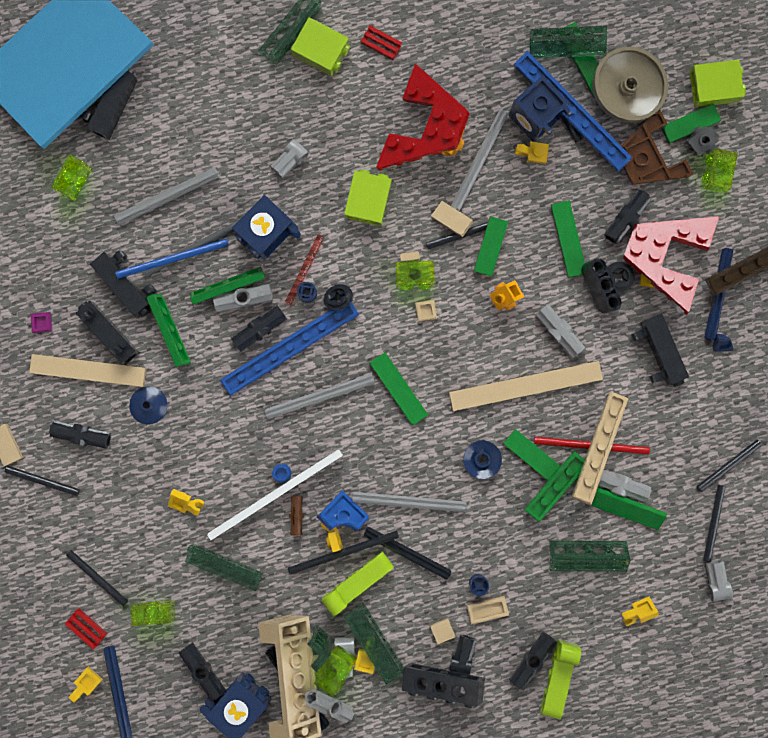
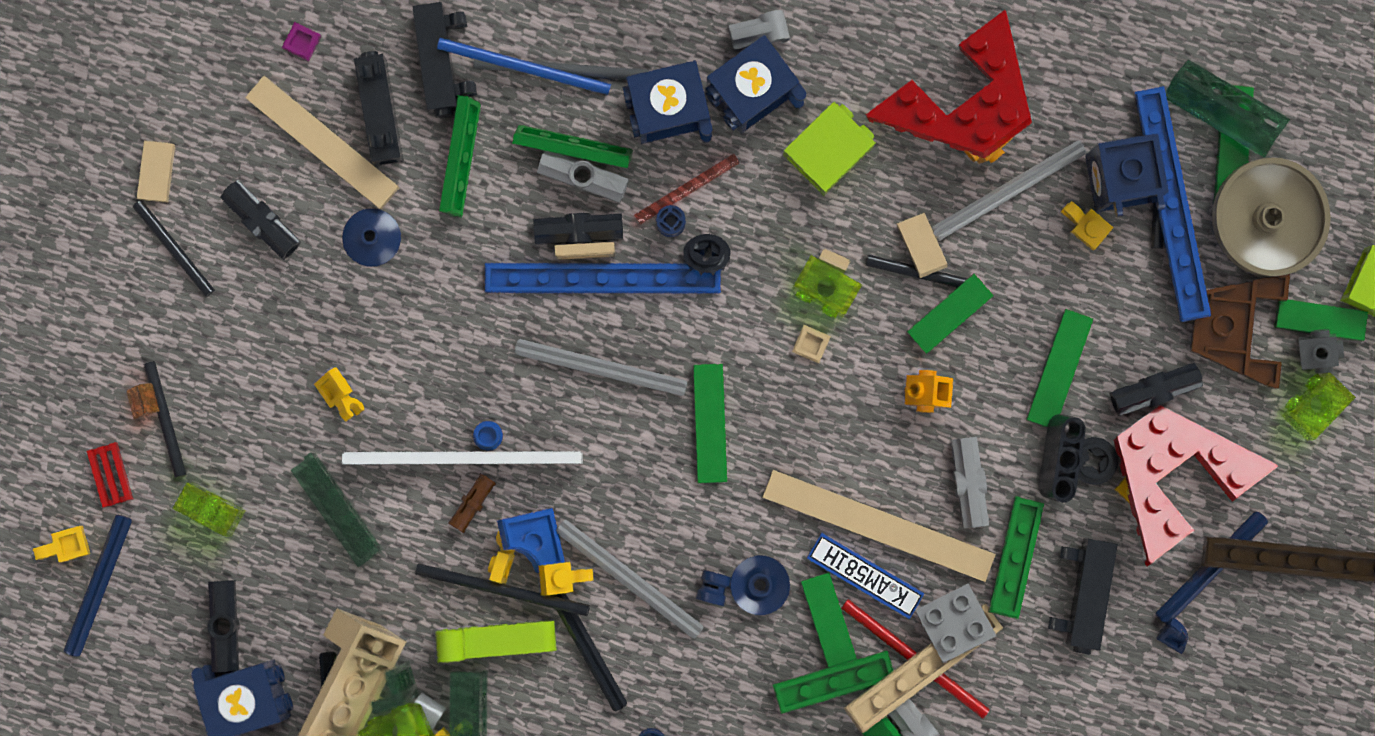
camera: 30 degrees right, 0 degrees up
(78, 575) = (142, 400): none -> clear orange slope
(270, 338) = (585, 251): none -> tan tile
(305, 189) = (753, 85): none -> dark blue container
(370, 526) = (559, 577): none -> yellow plate
(458, 481) = (712, 594): none -> dark blue wheel
(536, 417) = (865, 576): none -> tile
(602, 412) = (955, 623): none -> light grey hinge
(611, 356) = (1016, 558): none -> green tile

